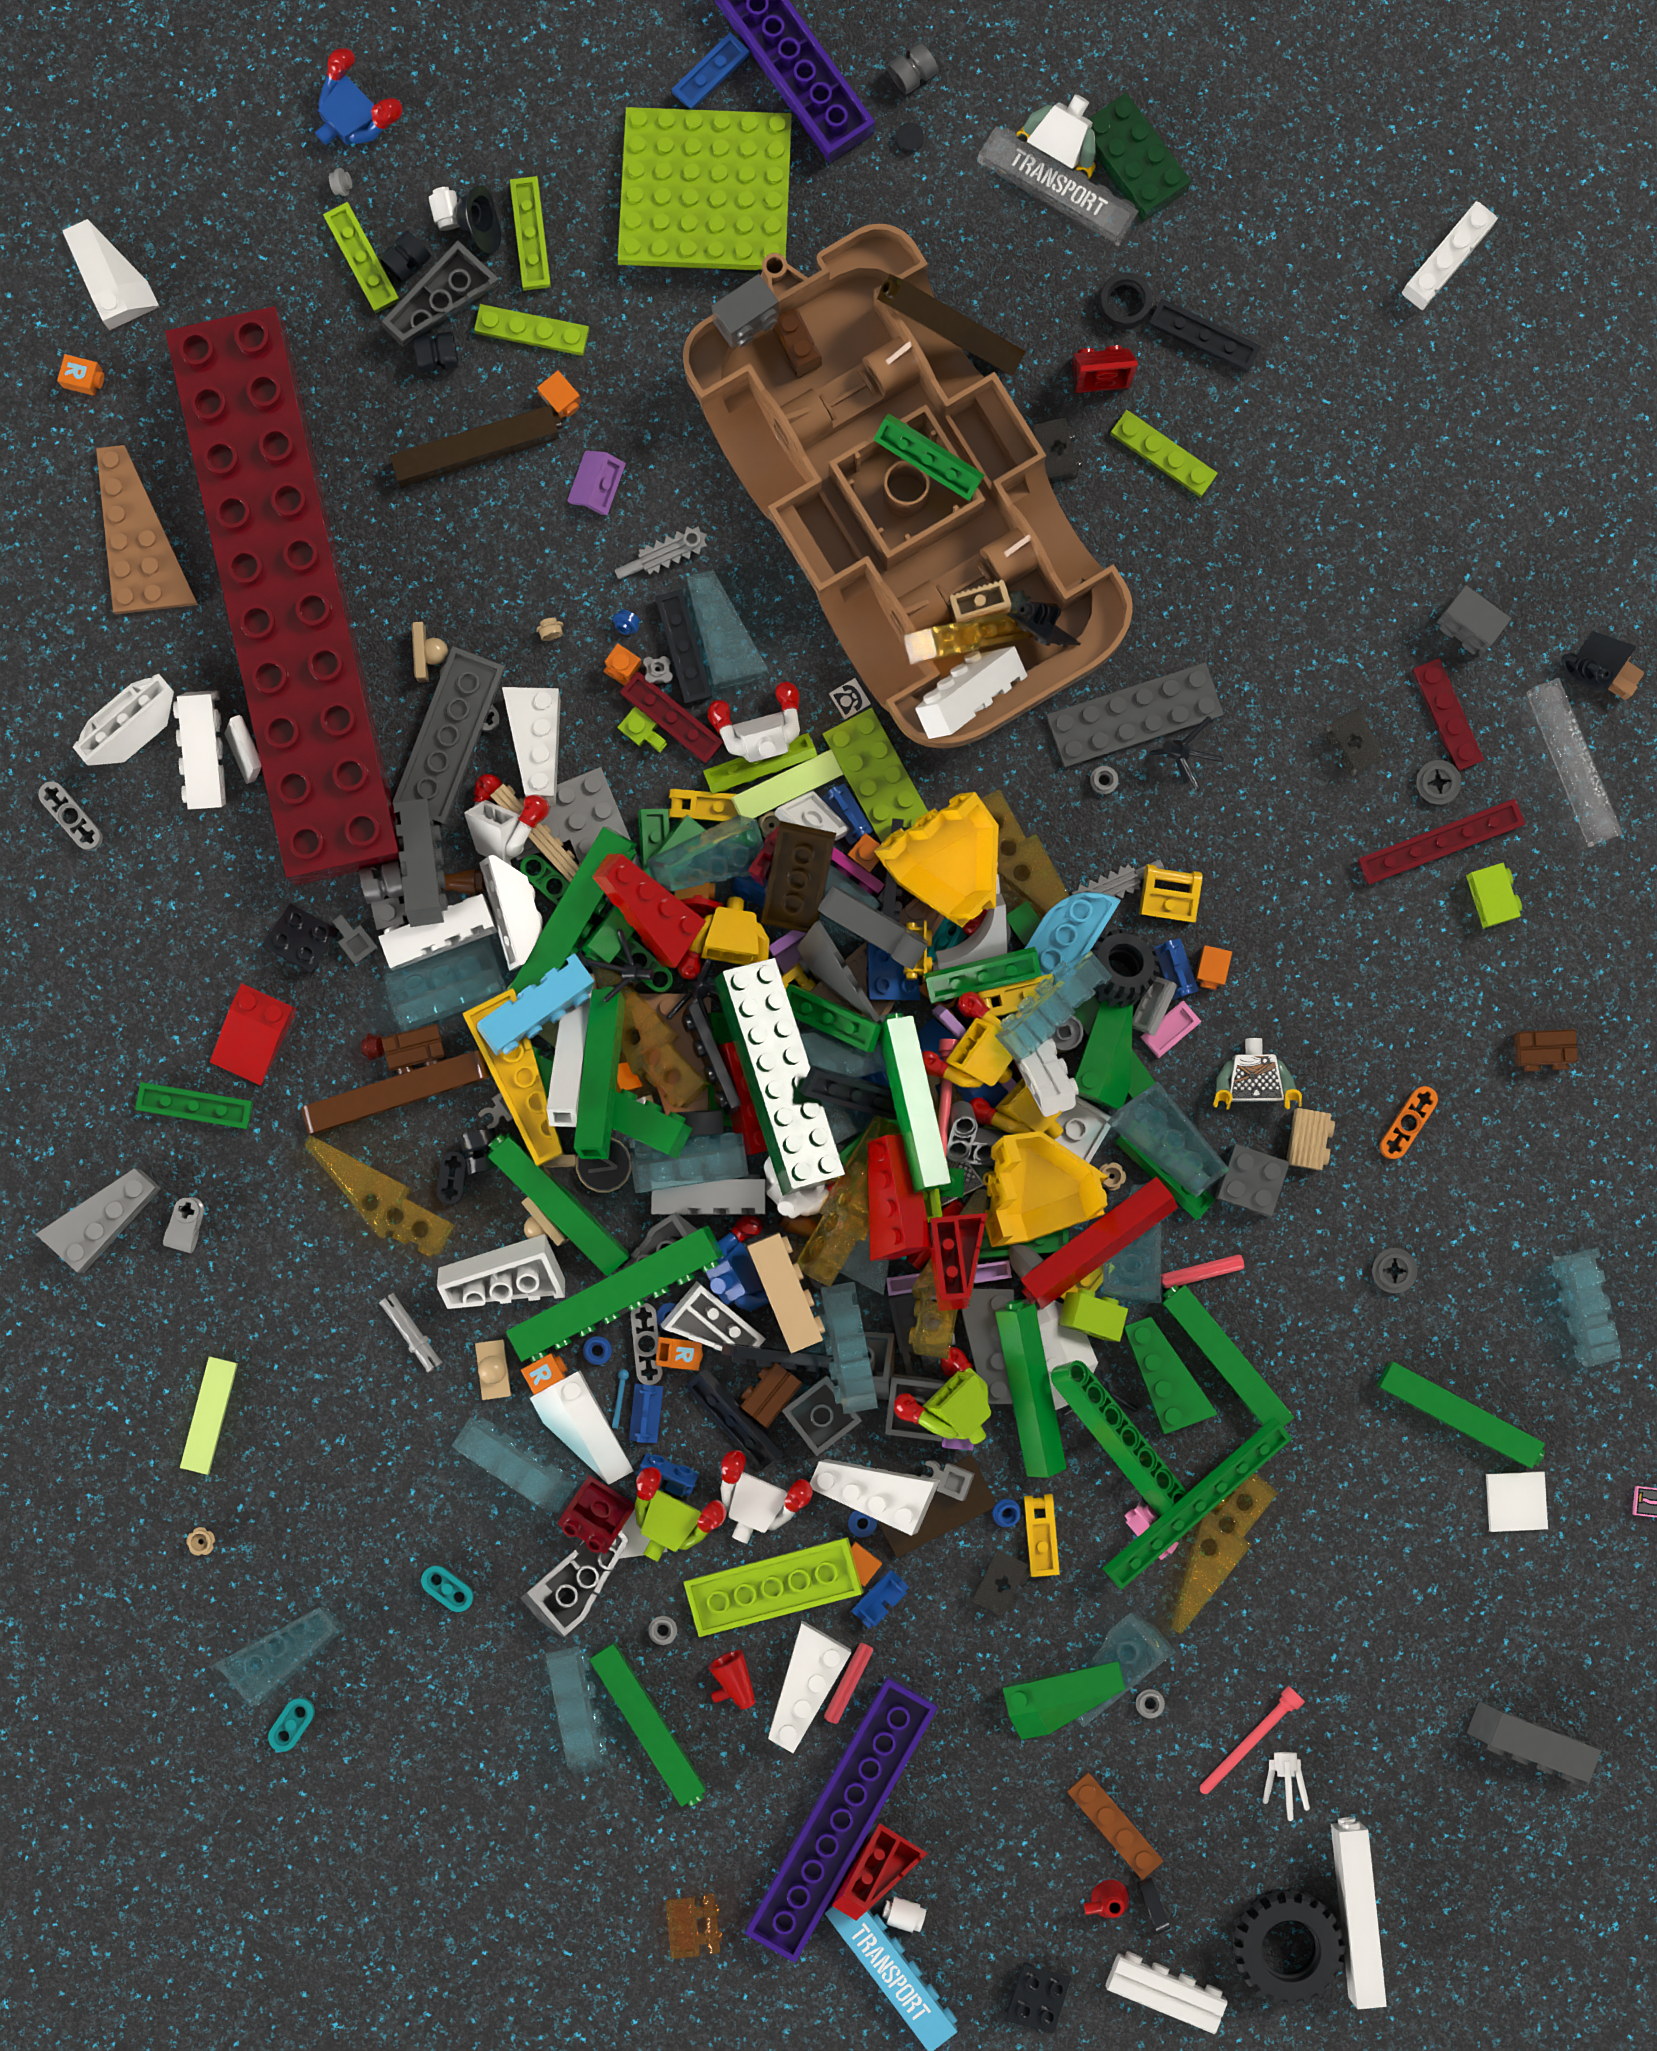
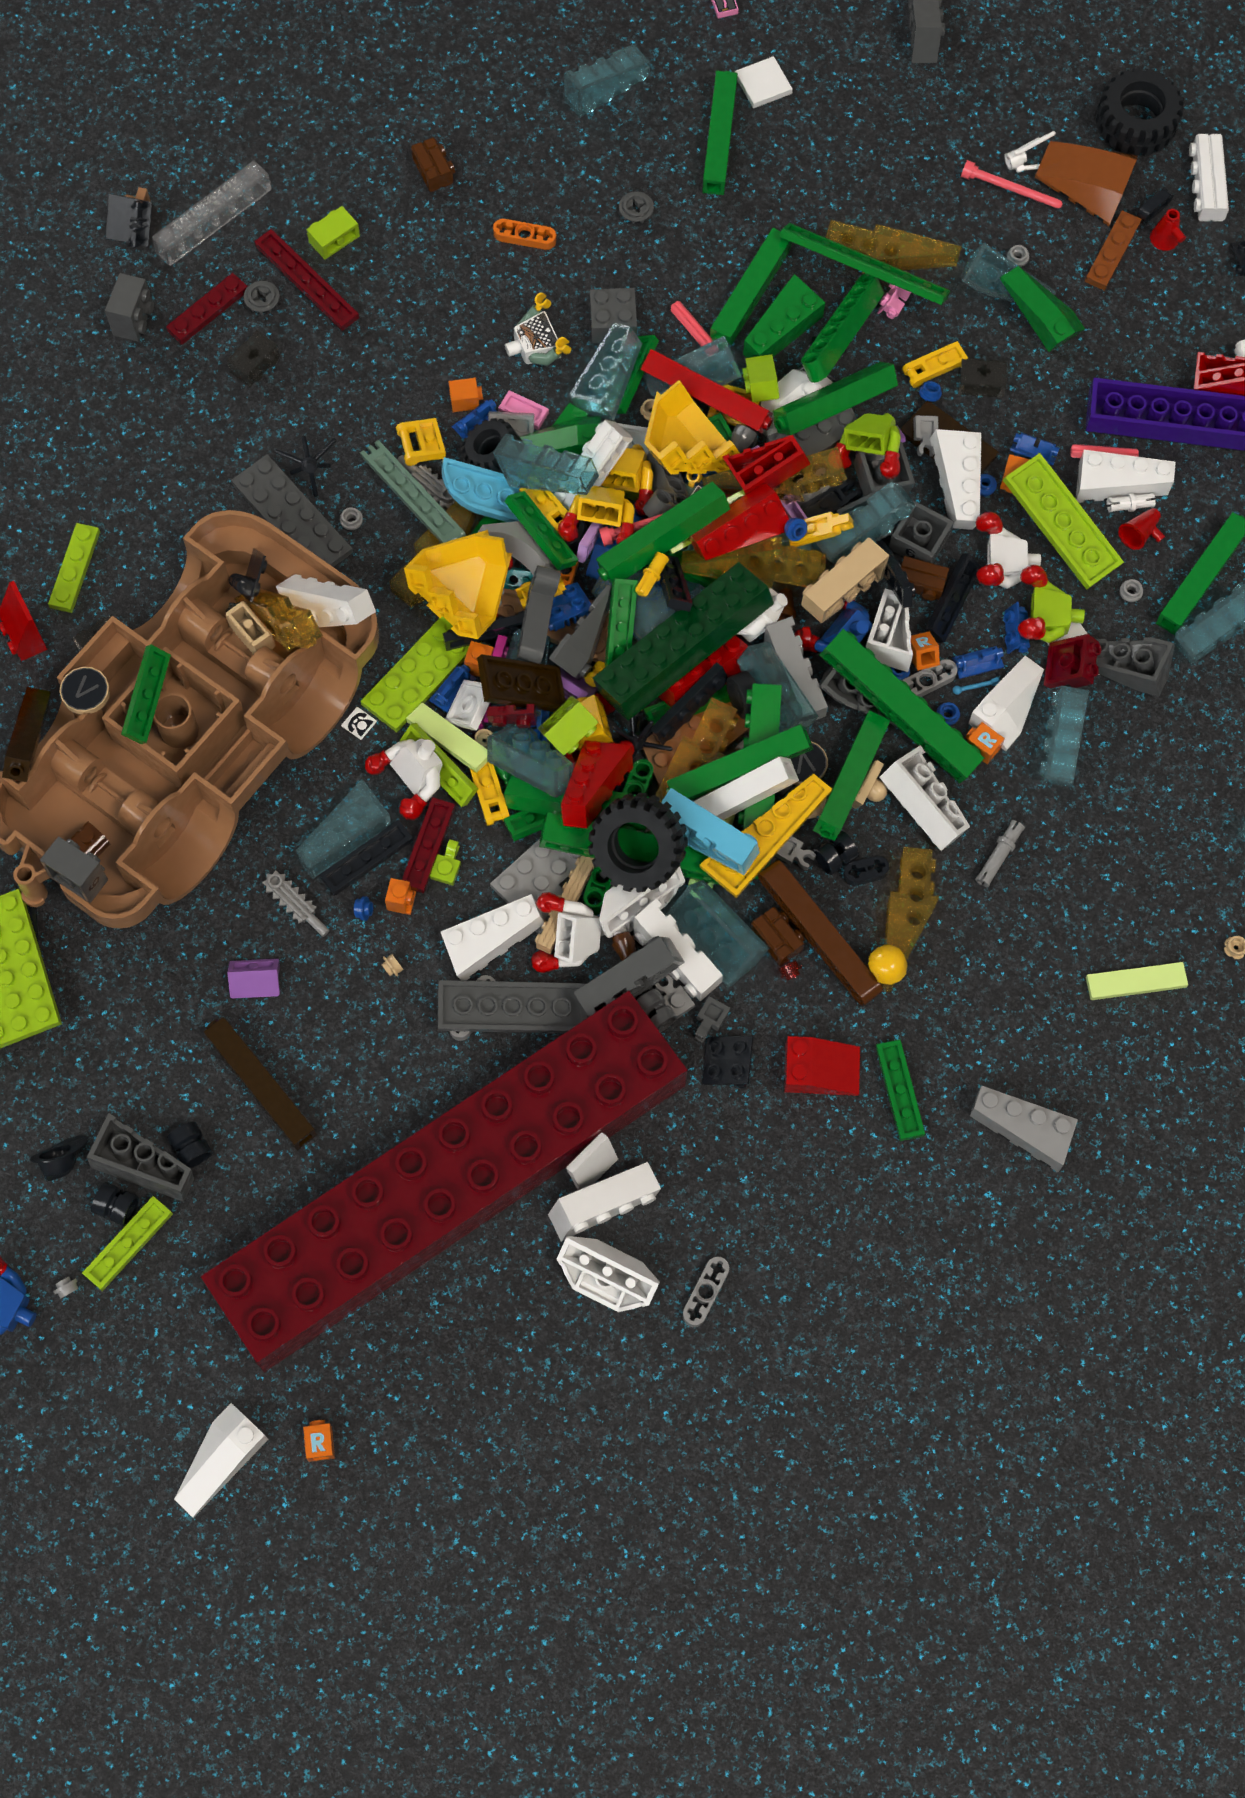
camera: 110 degrees left, 15 degrees down
(138, 551) = (459, 1326): medium nougat wing -> none
(183, 1230) = (1002, 1057): light grey piece -> none
(326, 1147) = (888, 964): none -> yellow hair
(425, 652) = (450, 1055): tan tile -> none
(443, 207) = (60, 1189): white brick -> none
(446, 1590) = (1178, 752): teal plate -> none
(493, 1369) = (998, 783): tan tile -> none
(530, 233) = (57, 1111): lime plate -> none
(531, 330) = (142, 1080): lime plate -> none
(559, 395) = (190, 1032): orange brick -> none
(563, 938) = (616, 863): none -> black tyre
(630, 971) = (651, 781): black plant -> none
(654, 676) = (397, 873): light grey plate -> none
(730, 909) = (568, 726): none -> lime slope
(771, 1682) = (1130, 502): none -> white pin
(859, 1289) = (824, 527): none -> yellow hinge
(866, 1260) = (795, 529): none -> blue plate
(868, 1070) = (651, 574): none -> yellow axle
(963, 395) = (84, 690): none -> black tile
(1095, 856) = (412, 493): none -> sand green hinge
(1228, 1844) = (1087, 176): none -> dark orange wedge
(1309, 1139) = (566, 289): tan brick -> none
(1358, 1913) = (1087, 78): white brick -> none

